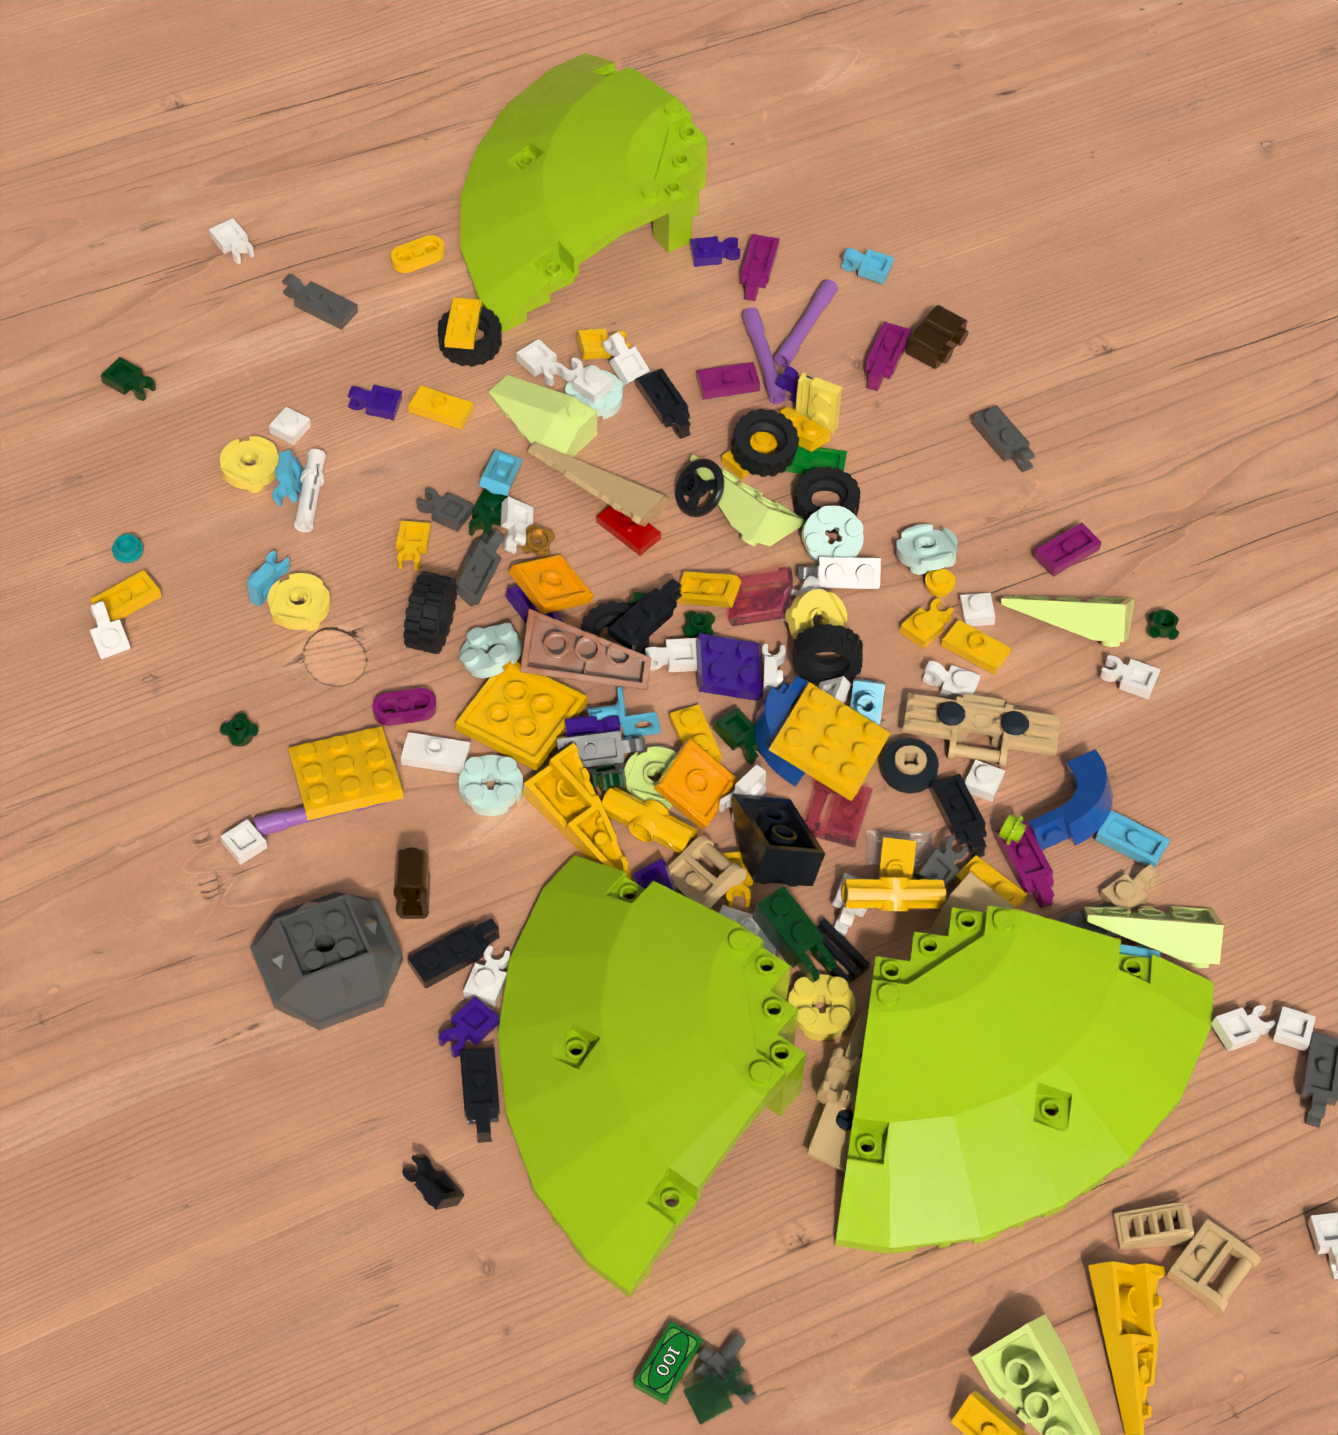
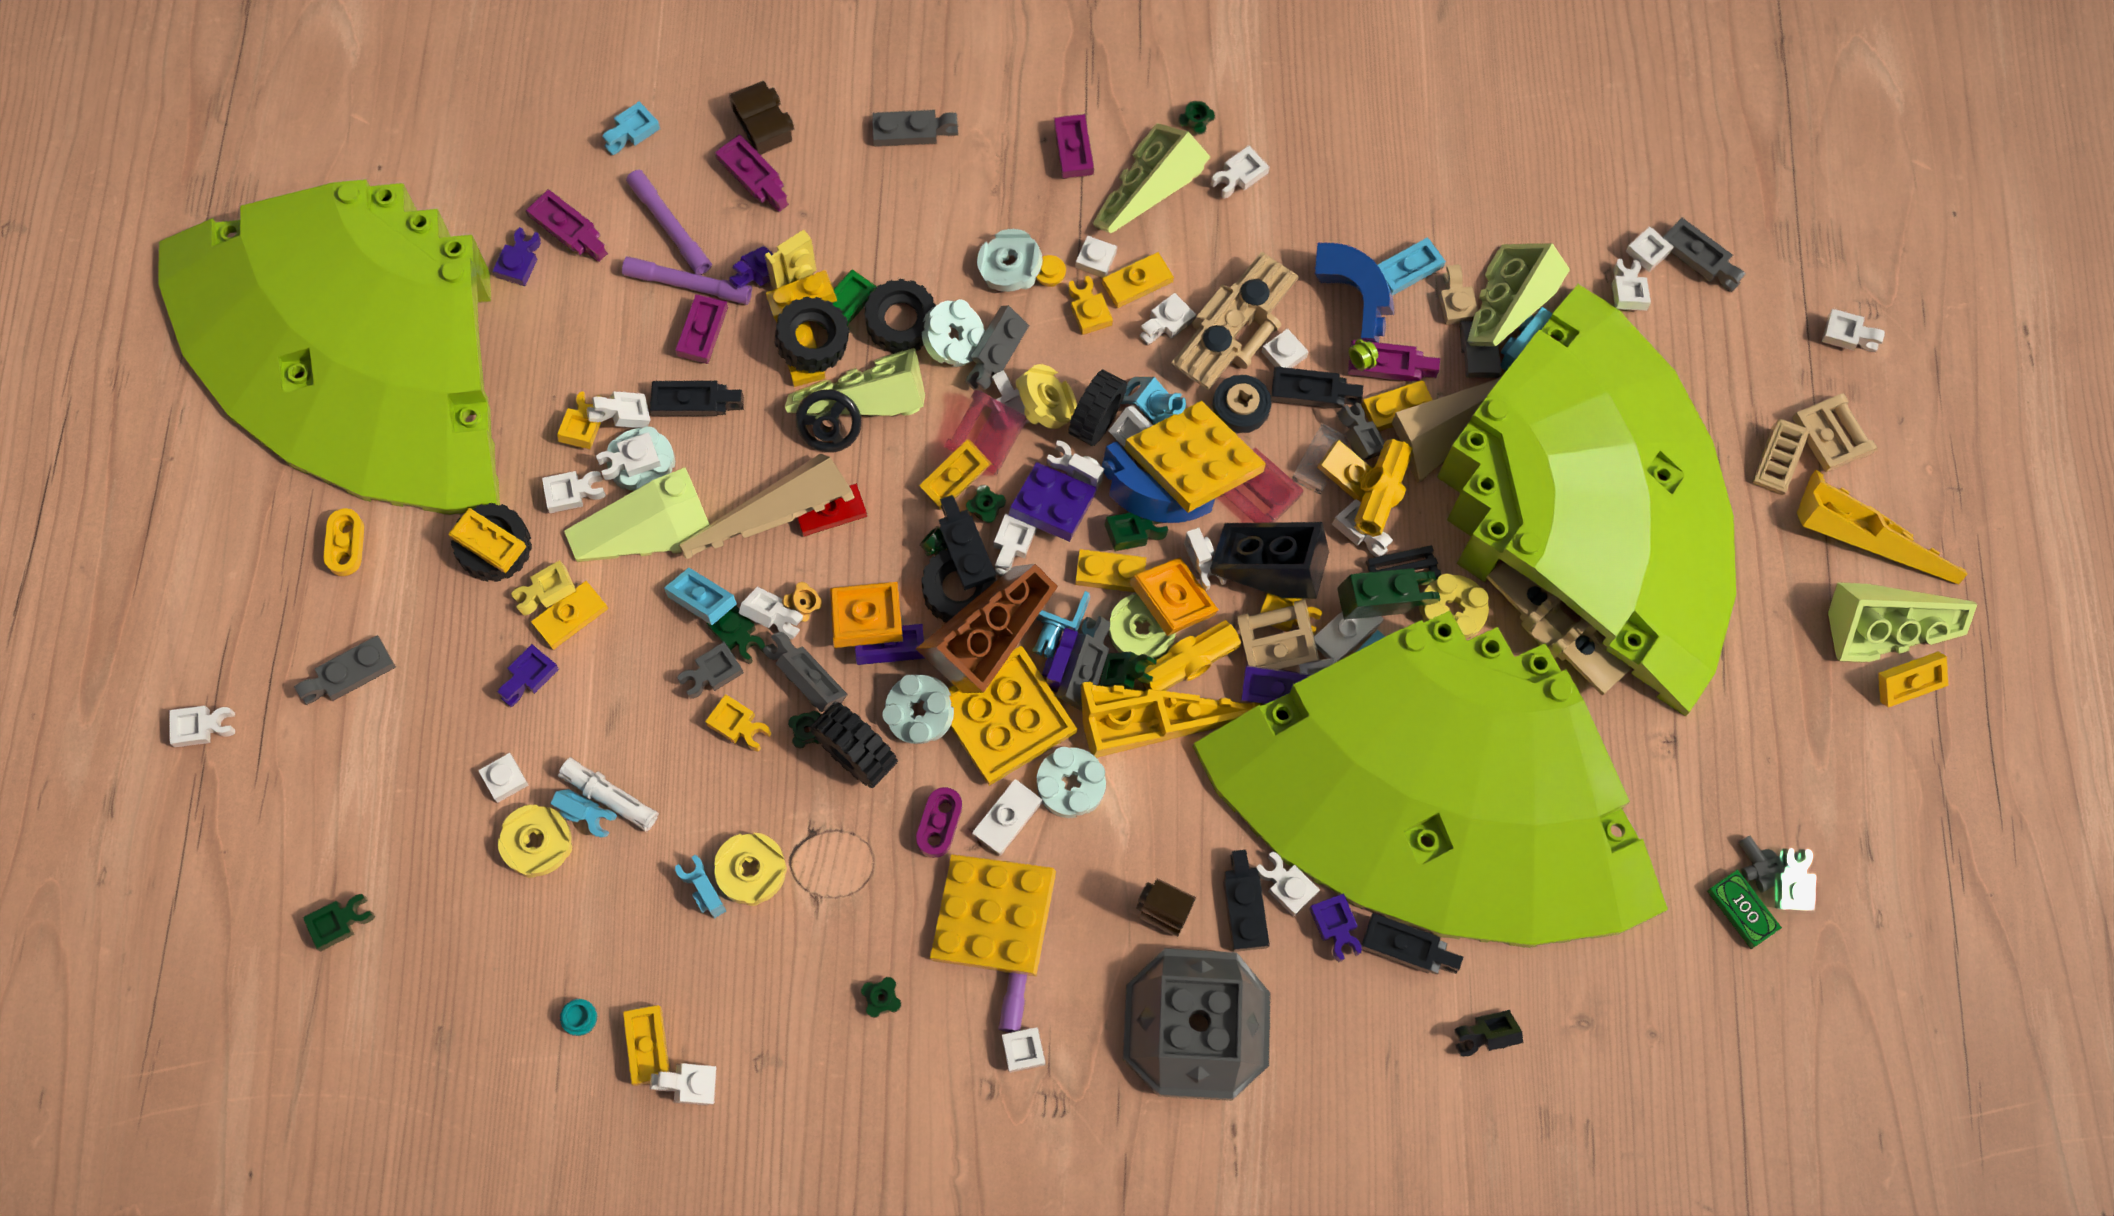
camera: 65 degrees left, 15 degrees up
(453, 383) = (547, 588): none -> light yellow plate

